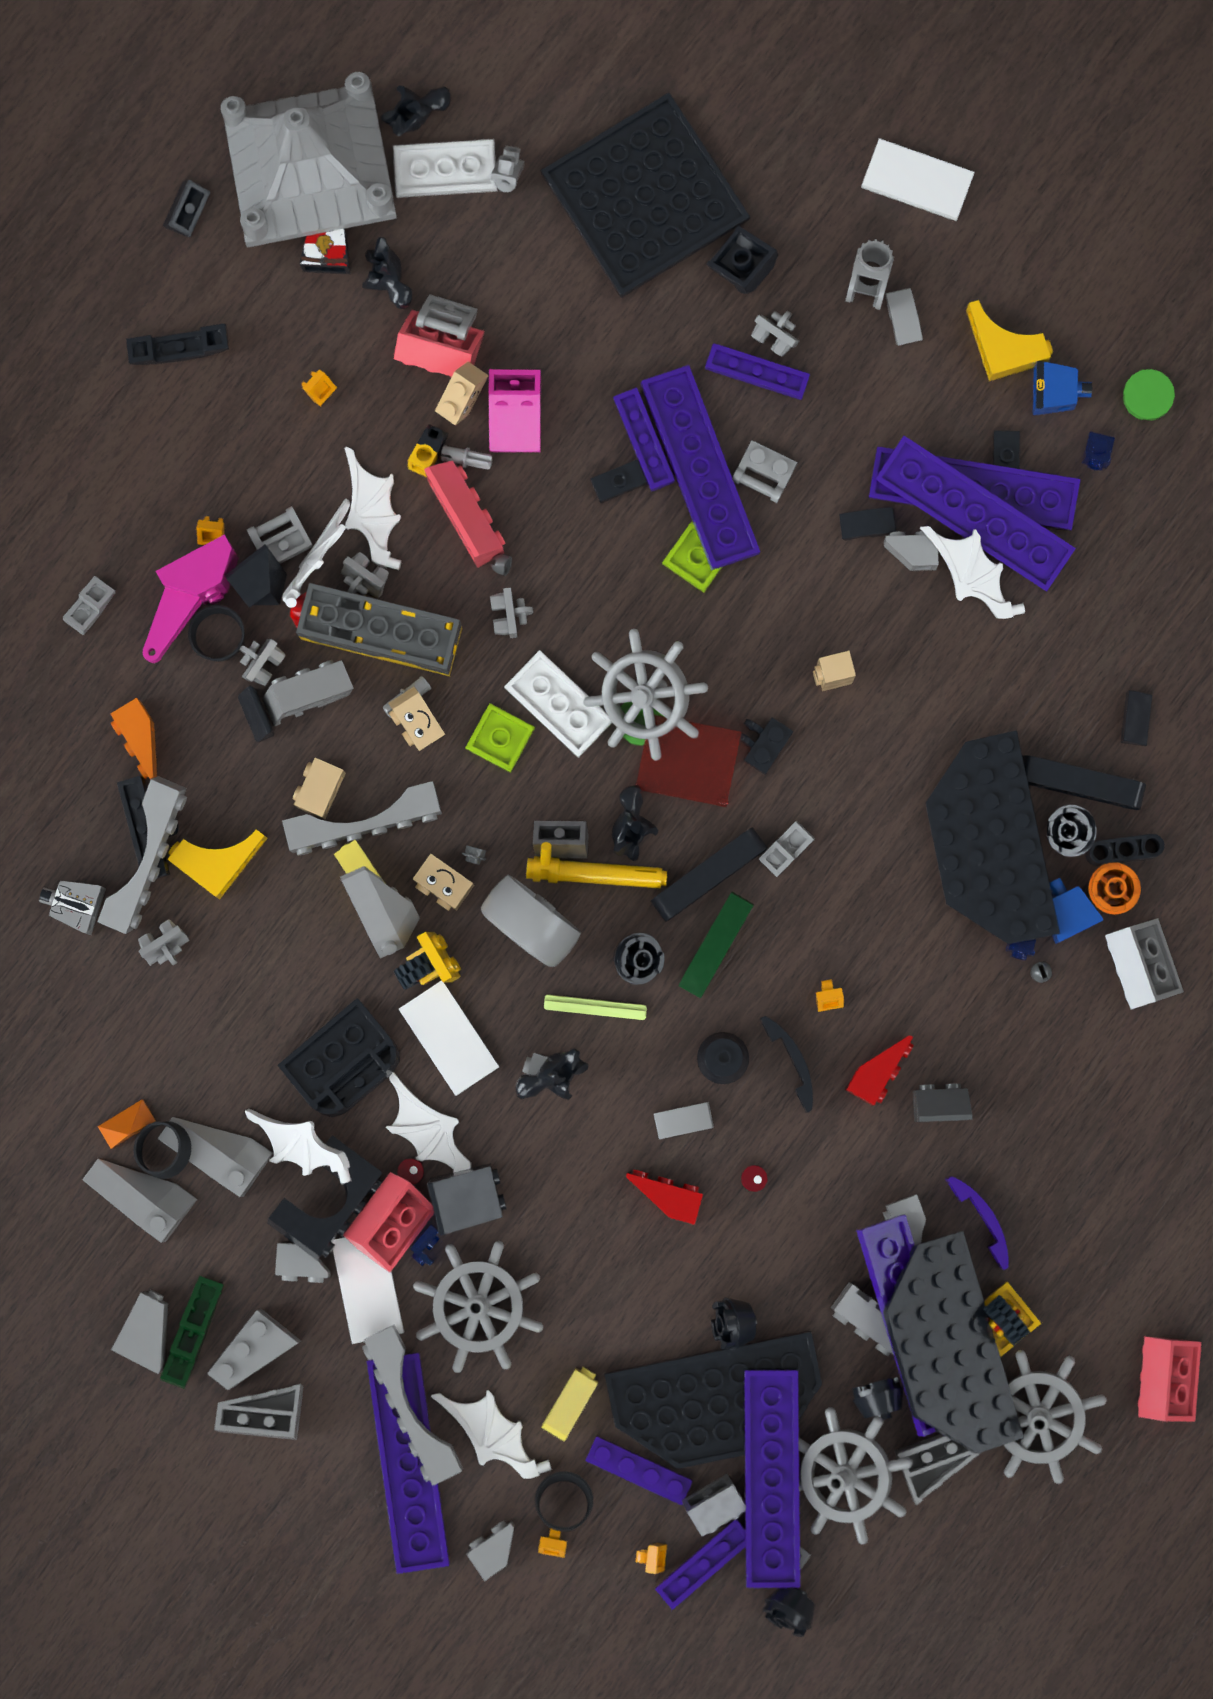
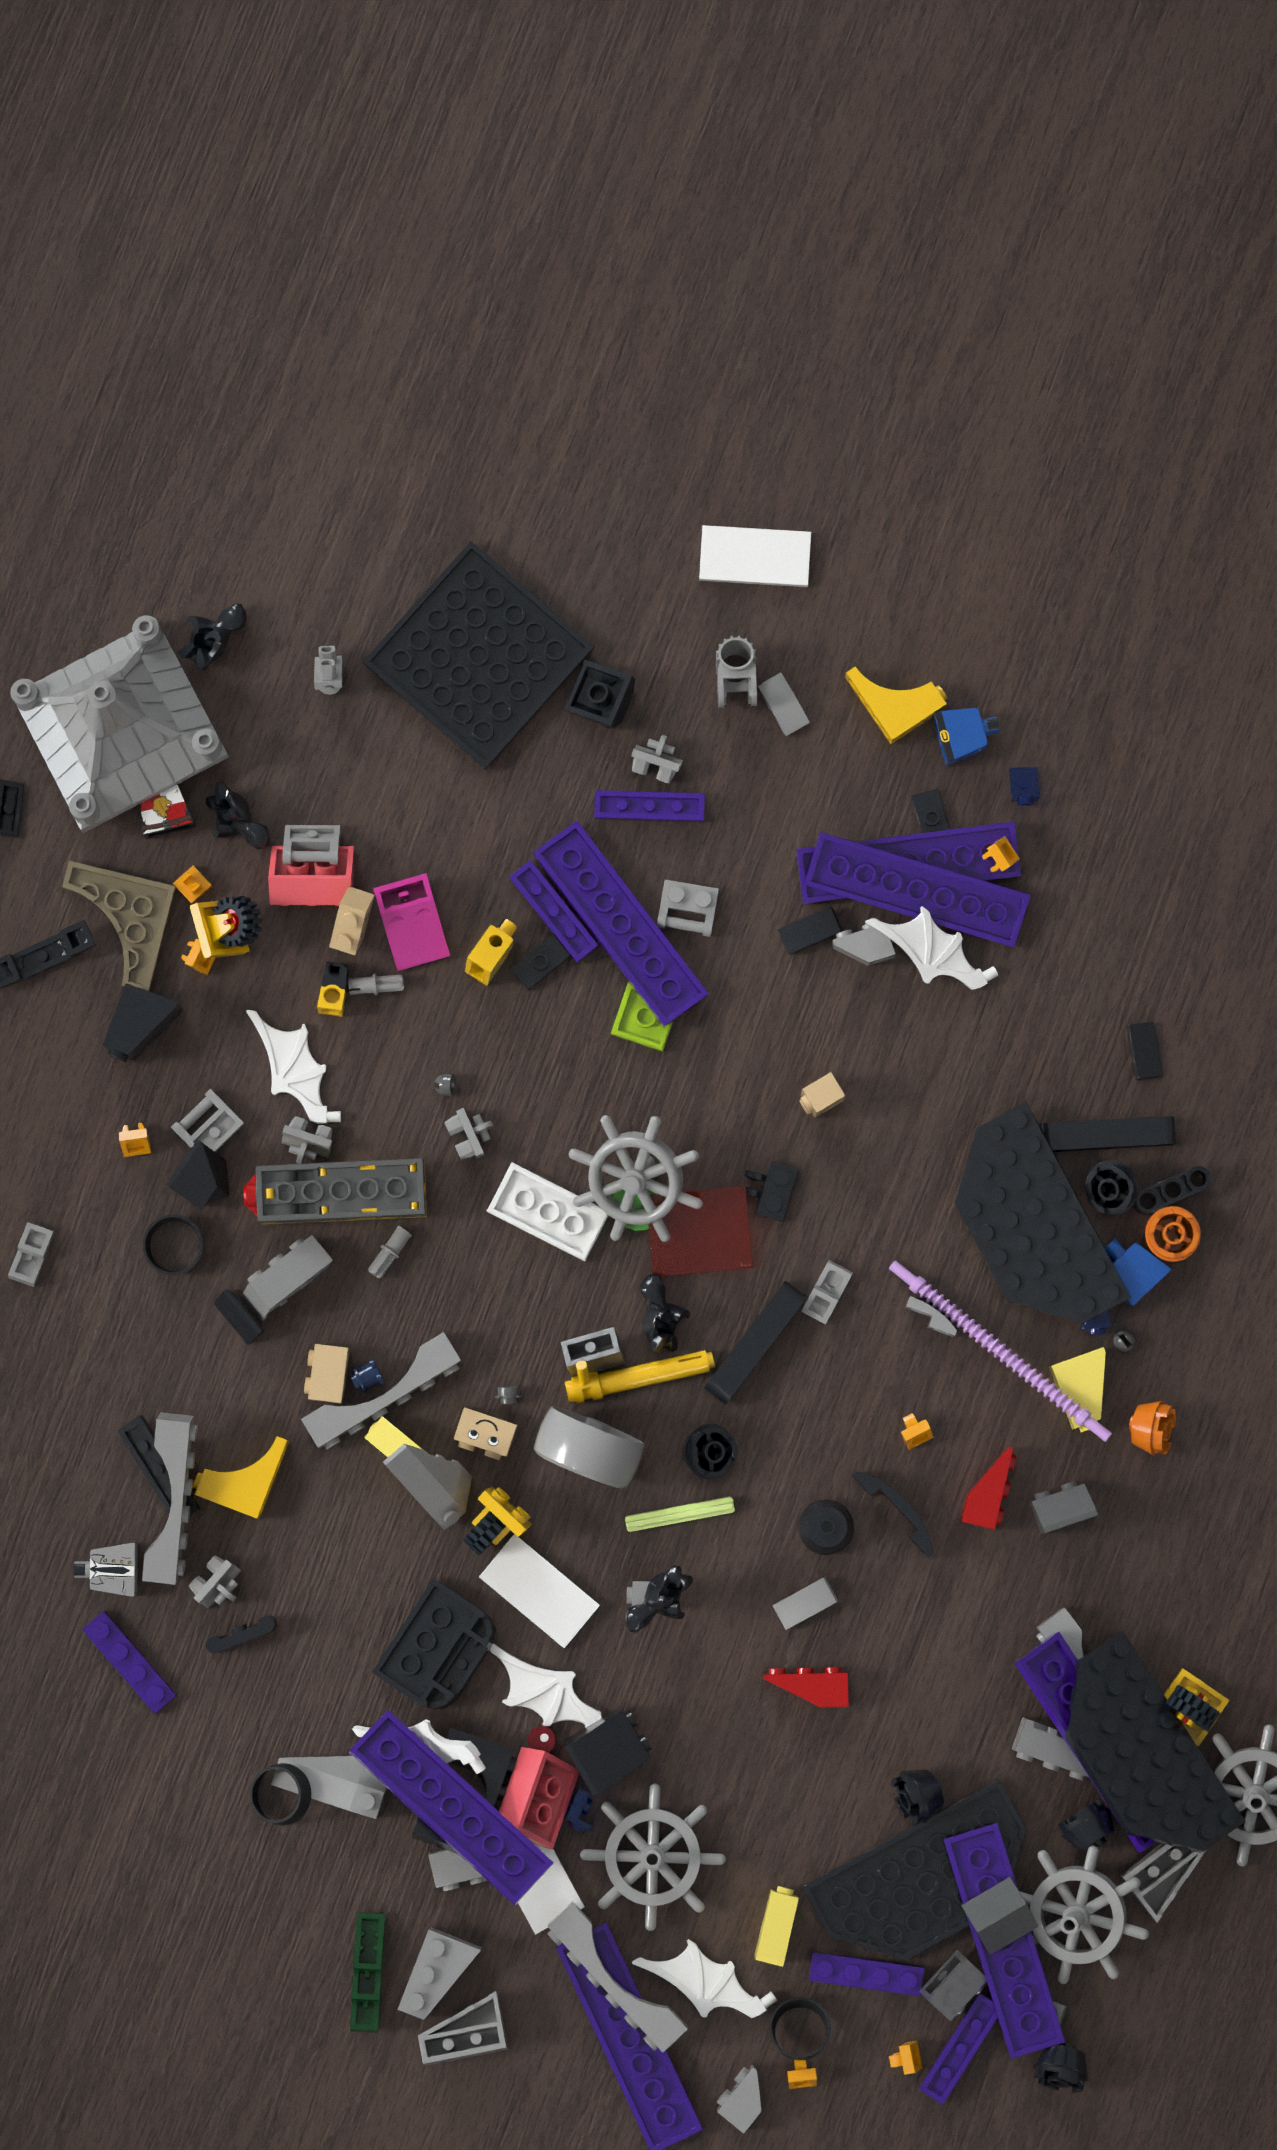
camera: 20 degrees left, 0 degrees up
(65, 991) = (129, 1662): none -> dark purple plate
(126, 1123) = (234, 1779): orange slope -> none
(139, 731) = (122, 1369): orange slope -> none
(145, 1332) = (319, 1987): light grey slope -> none
(146, 1200) = (279, 1851): light grey wedge -> none
(171, 997) = (241, 1635): none -> black plate
(188, 584) = (128, 1205): dark pink slope -> none
(245, 427) = (138, 1022): none -> black slope
(268, 651) = (231, 1247): light grey hips -> none
(274, 331) = (135, 908): none -> dark tan plate
(309, 1207) = (451, 1807): none -> dark purple plate
(314, 557) = (250, 1137): white animal -> none
(331, 323) = (192, 885): none -> light orange tile
(348, 365) = (226, 926): none -> plate
(353, 801) = (366, 1376): none -> dark blue brick
(416, 719) = (407, 1272): tan brick -> none
(444, 168) = (261, 687): white tile -> none
(464, 512) = (392, 1043): coral slope -> none
(500, 738) = (498, 1265): lime tile -> none
(576, 458) = (485, 958): none -> yellow torso
(716, 945) = (784, 1413): dark green slope -> none
(754, 1178) = (894, 1640): dark red tile -> none
(775, 1455) = (999, 1915): none -> dark grey slope
(879, 904) = (937, 1322): none -> light grey slope
(984, 1026) = (1081, 1416): none -> lavender hose
(990, 1001) = (1083, 1381): none -> light yellow slope
(998, 1248) = (1164, 1636): dark purple slope -> none
(1044, 1056) = (1152, 1427): none -> orange cone
(1061, 503) = (1002, 854): none -> light orange tile
(1144, 963) = (1226, 1301): light grey slope -> none
(1148, 394) = (1058, 711): bright green tile -> none

